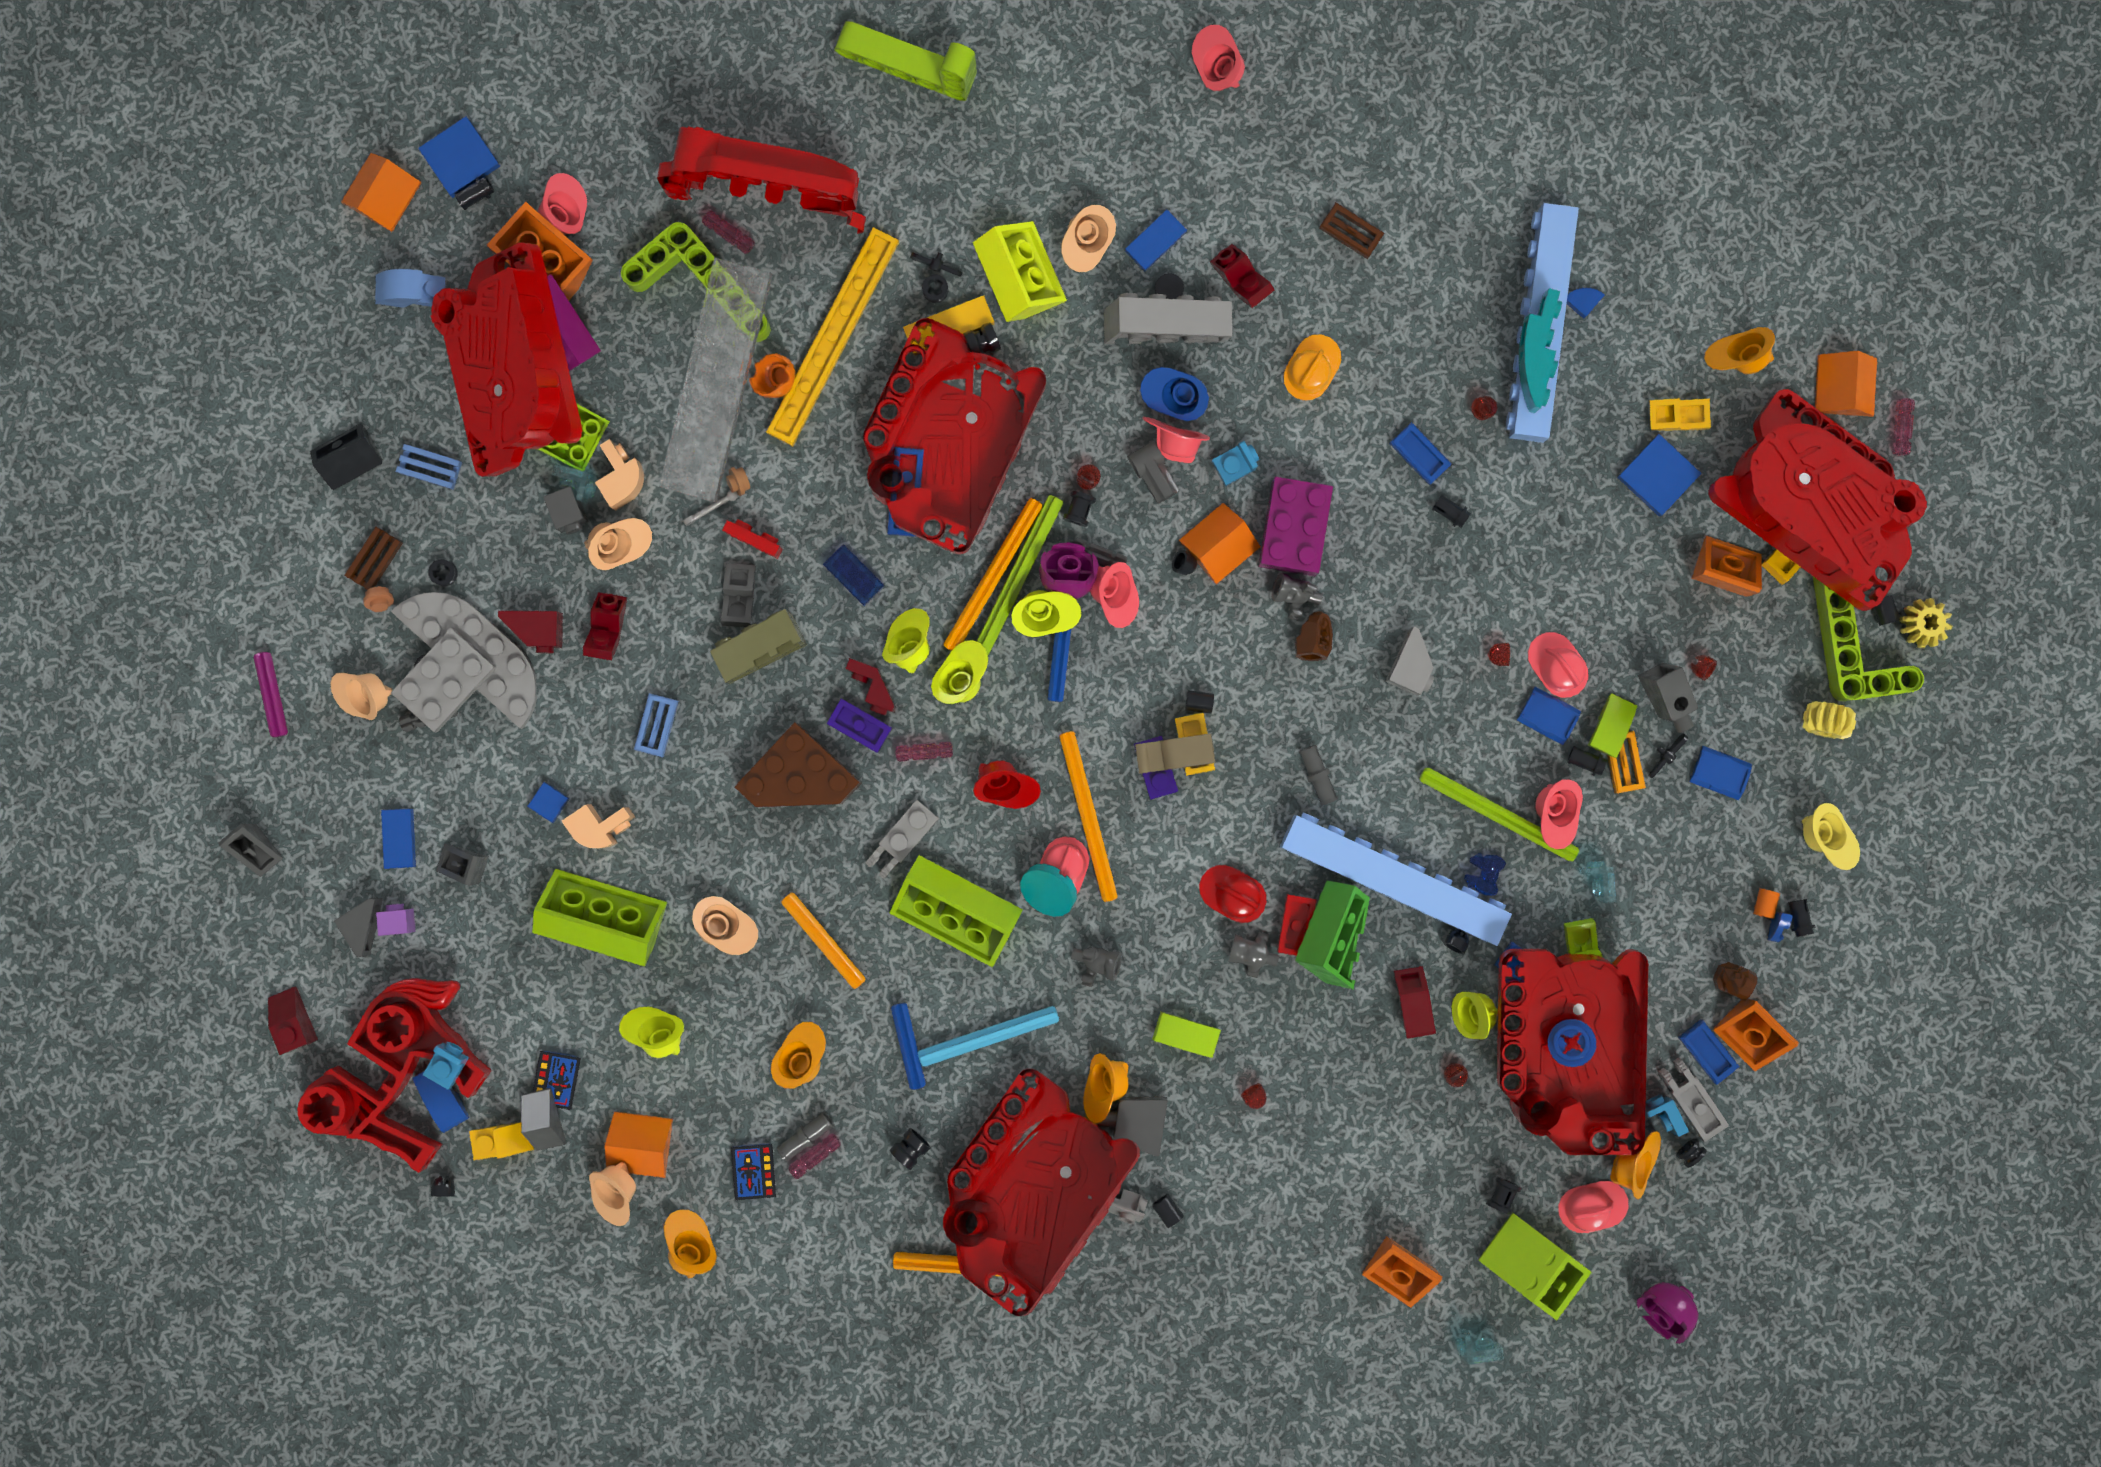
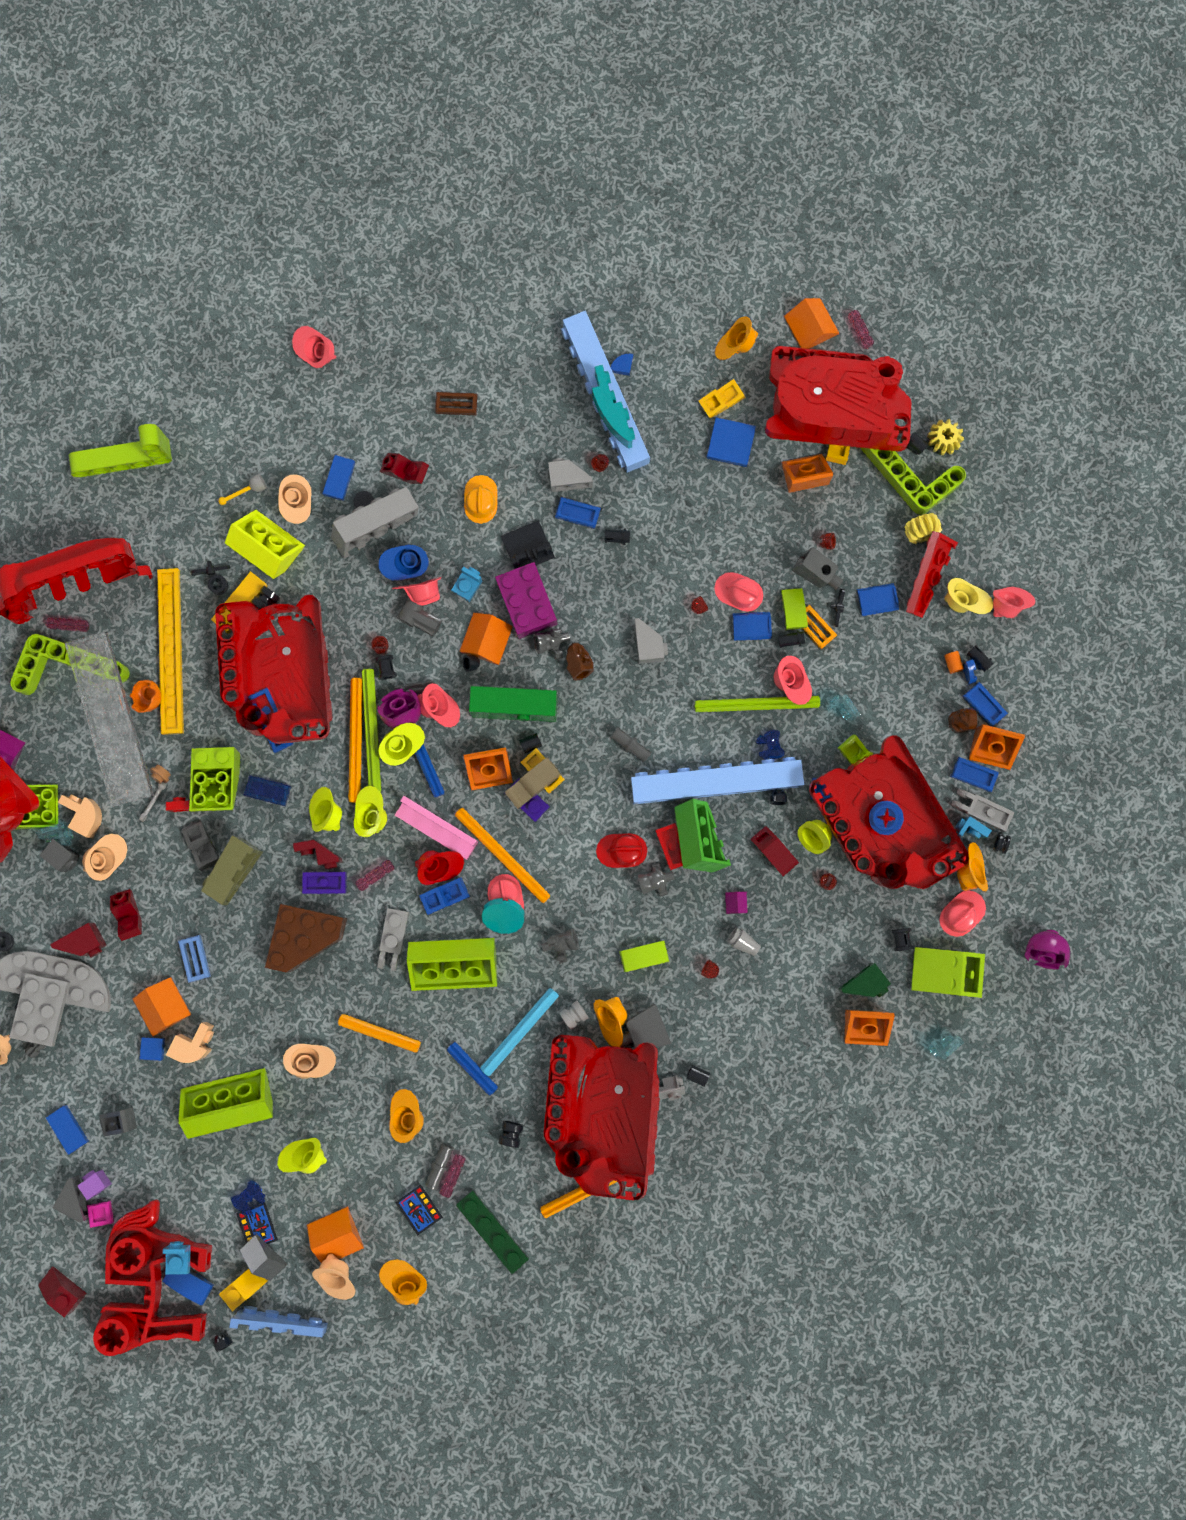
camera: 30 degrees left, 5 degrees down
(383, 959) = (100, 1214): none -> dark pink tile
(519, 1205) = (278, 1323): none -> medium blue wing
(555, 1040) = (252, 1191): none -> clear blue piece
(586, 759) = (161, 1006): none -> orange slope
(799, 526) = (214, 778): none -> lime slope
(823, 1247) = (492, 1232): none -> dark green plate
(992, 824) = (444, 896): none -> blue slope
(1028, 737) = (436, 827): none -> bright pink fence
(1051, 190) = (256, 484): none -> hinge
(1063, 1055) = (574, 1015): none -> light grey wheel
(1132, 704) = (488, 768): none -> orange slope
(1208, 645) = (513, 704): none -> green brick
(1313, 1086) = (743, 941): none -> light grey cone
(1332, 1035) = (736, 902): none -> magenta slope
(1336, 459) = (528, 545): none -> black hinge
(1432, 1221) = (867, 982): none -> dark green slope
(1434, 401) = (567, 476): none -> light grey slope
(1772, 976) = (985, 704): none -> blue tile
(1802, 781) = (929, 574): none -> red wing
(1881, 872) = (1011, 601): none -> coral piece

